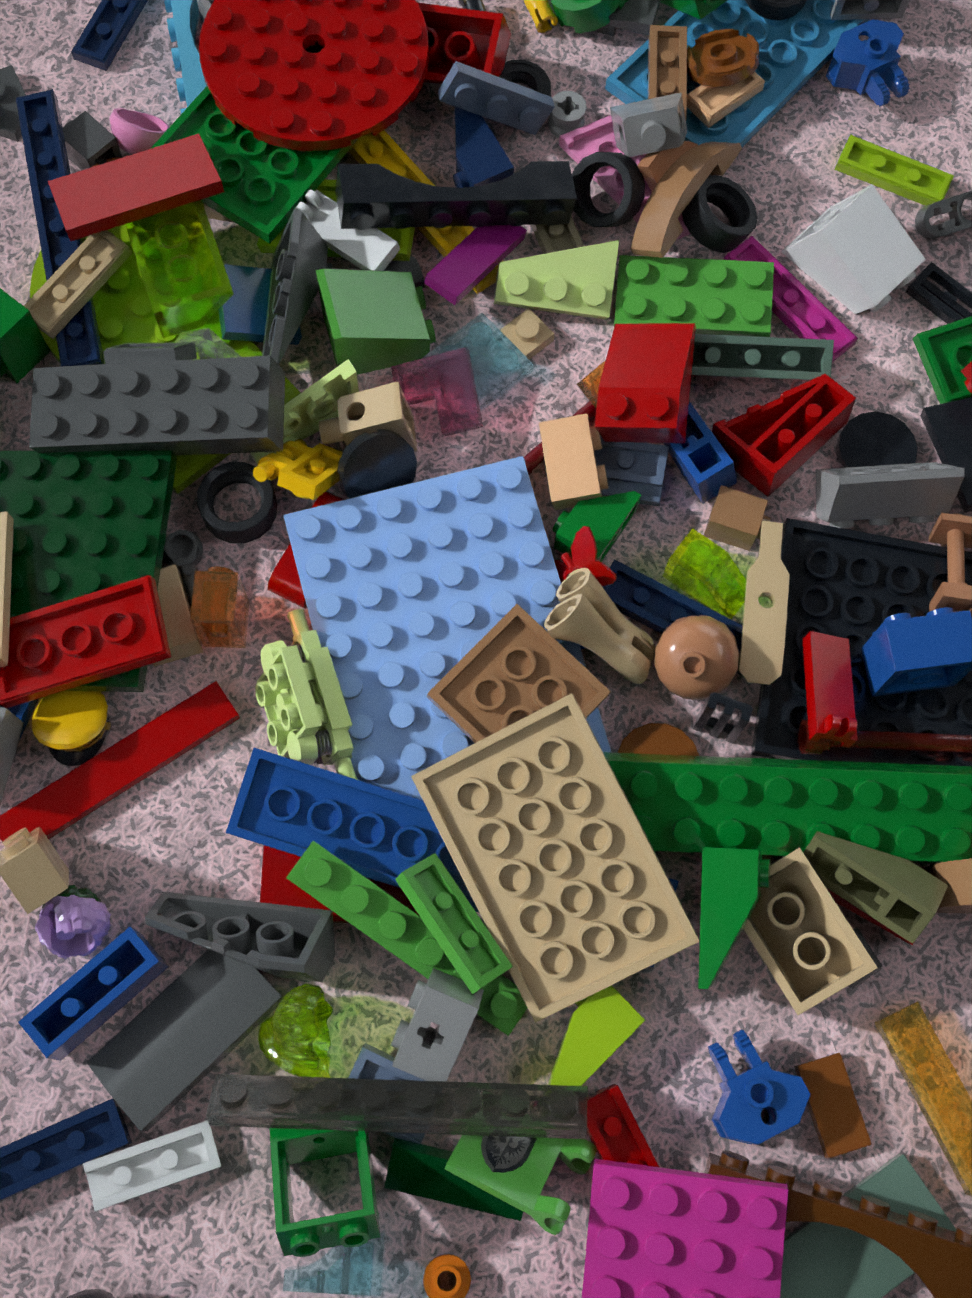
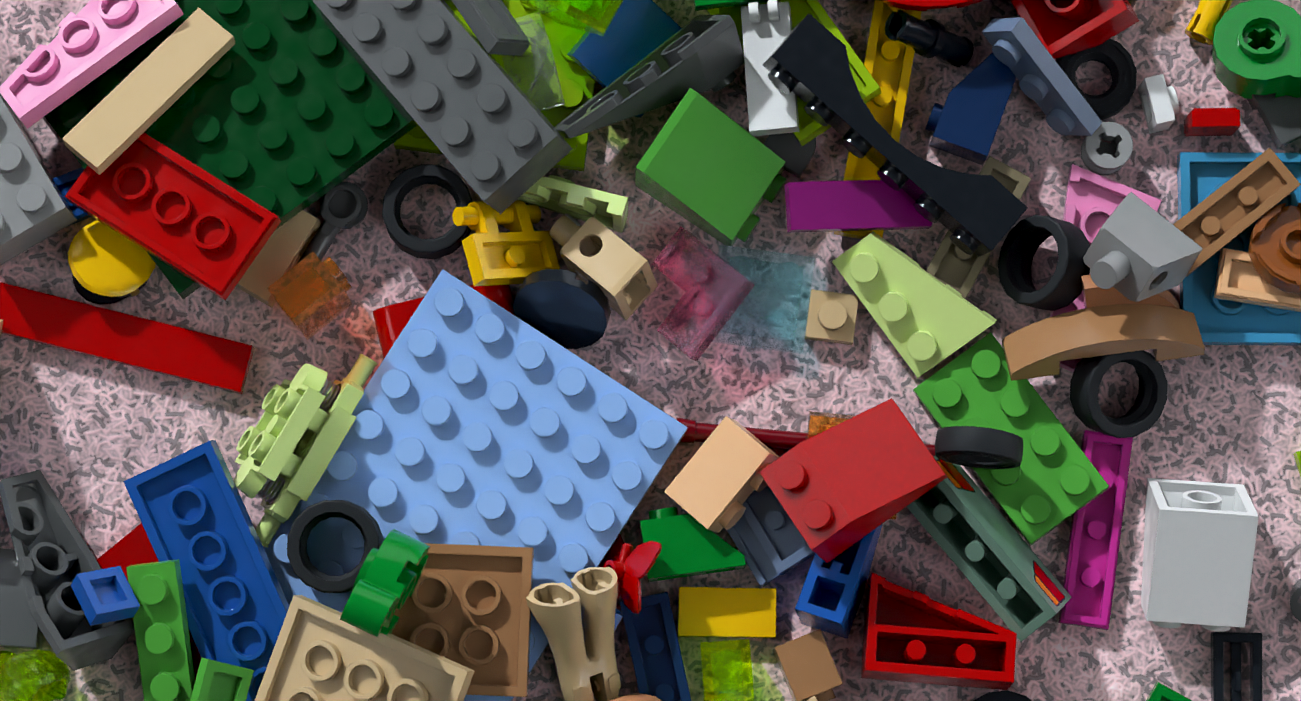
camera: 50 degrees right, 10 degrees up
(292, 908) = (105, 595): none -> blue plate
(385, 700) = (302, 528): none -> black tyre
(412, 142) = (928, 38): none -> black pin
(462, 702) = (385, 583): none -> green piece
(566, 69) = (1158, 103): none -> white plate
(604, 51) = (1212, 122): none -> red tile
(656, 539) = (727, 612): none -> yellow tile
(692, 296) = (979, 447): none -> black tyre

